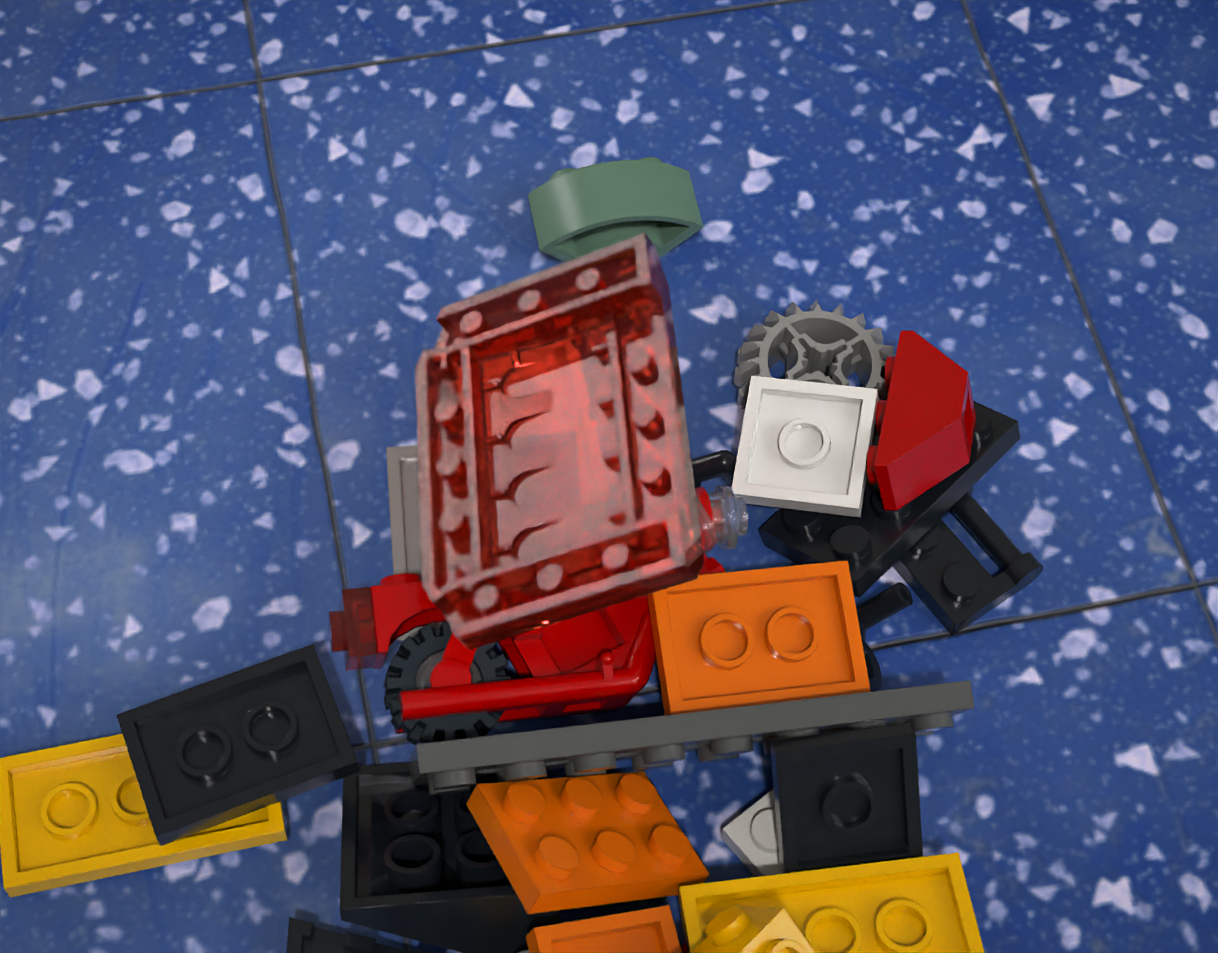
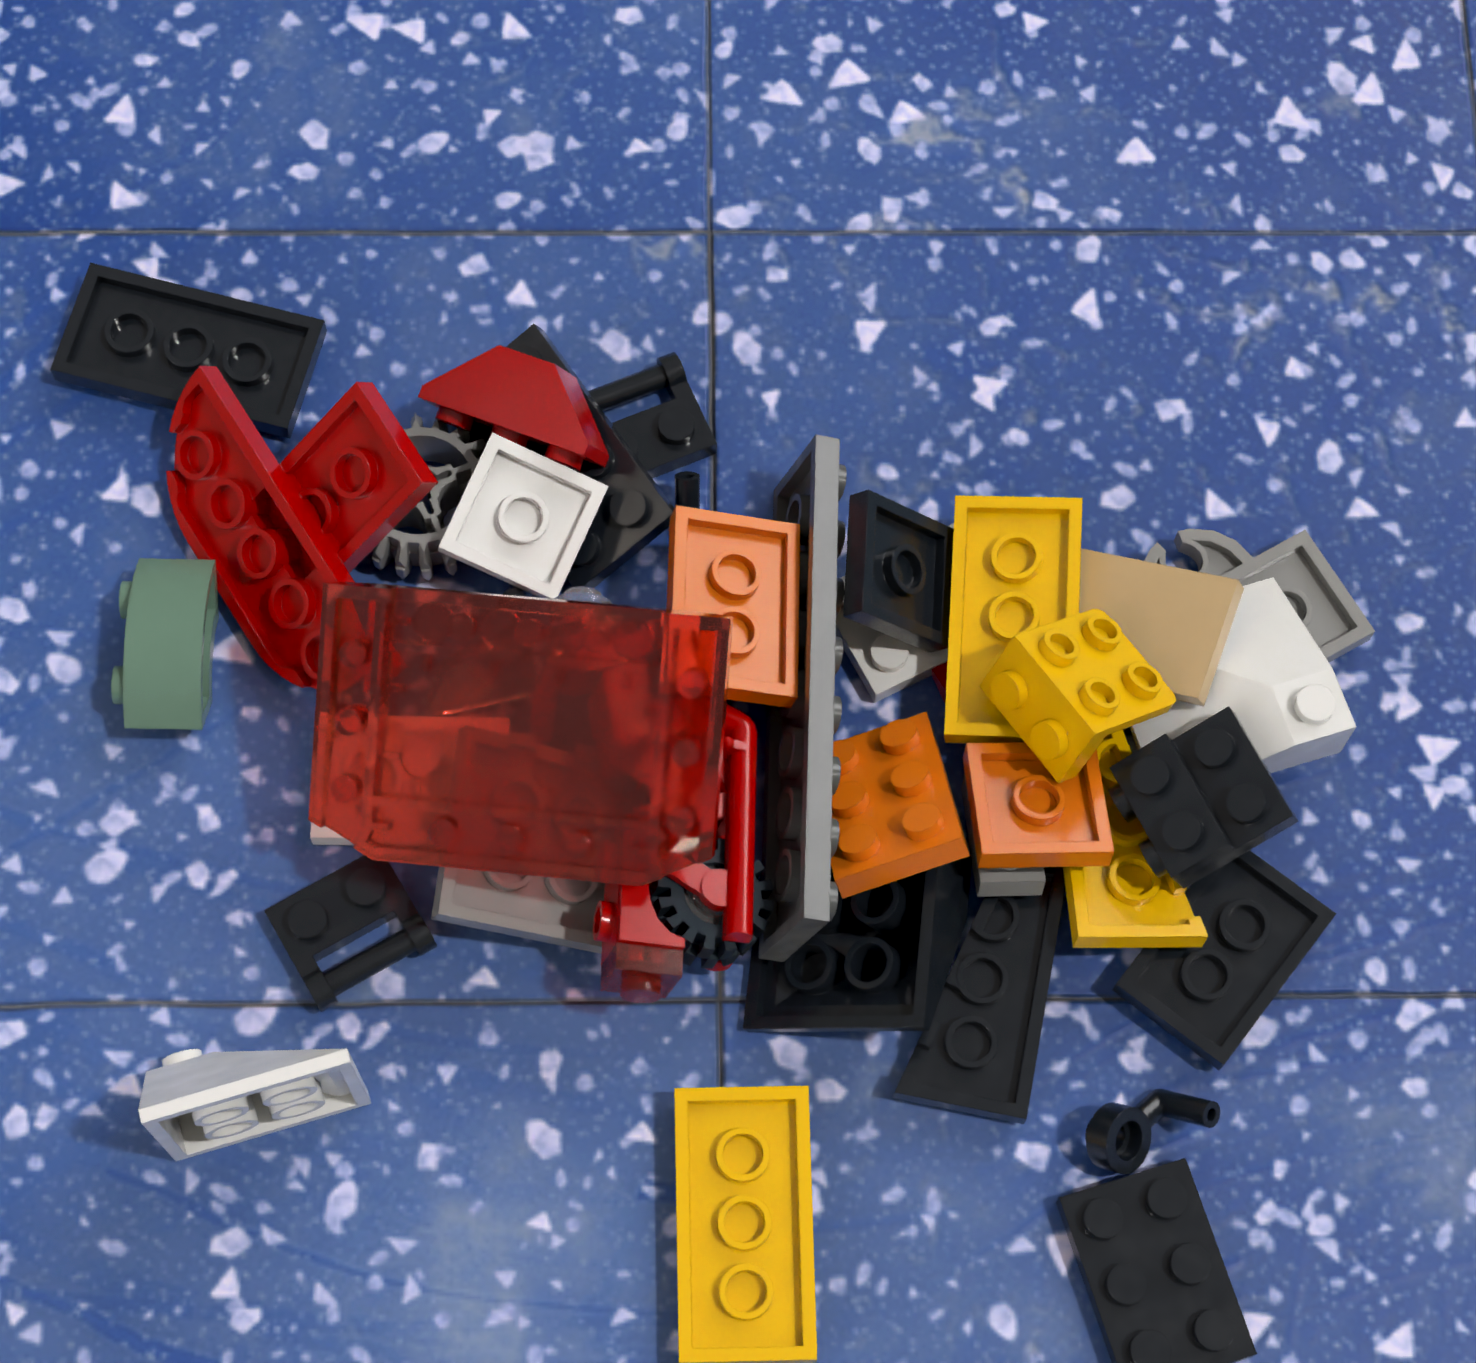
camera: 80 degrees left, 10 degrees up
(198, 329) = (236, 1096): none -> white slope
(237, 744) = (722, 1111): black plate -> none
(386, 389) = (339, 912): none -> black plate
(758, 274) = (292, 522): none -> red plate
(905, 176) = (152, 335): none -> black plate

